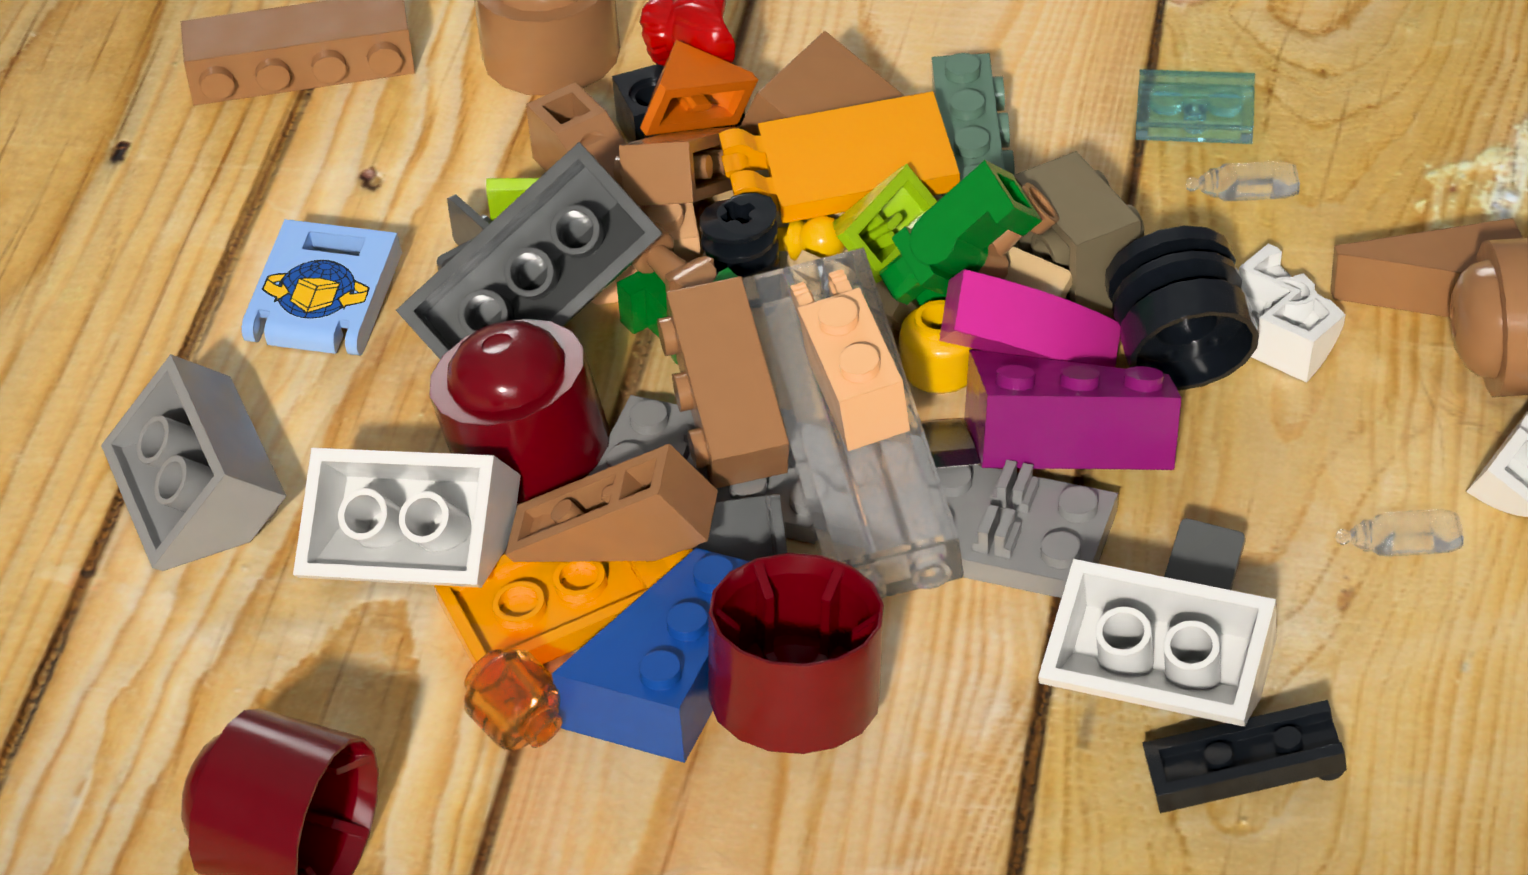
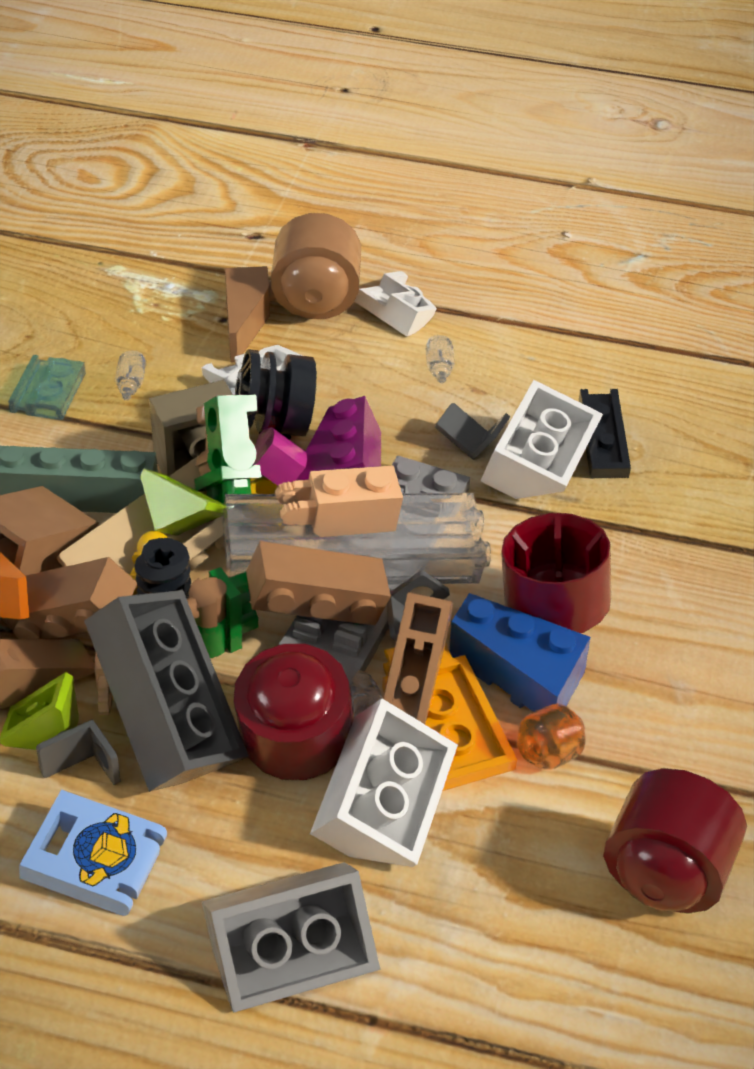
camera: 90 degrees left, 0 degrees up
(839, 155) = (102, 509): light orange tile -> none

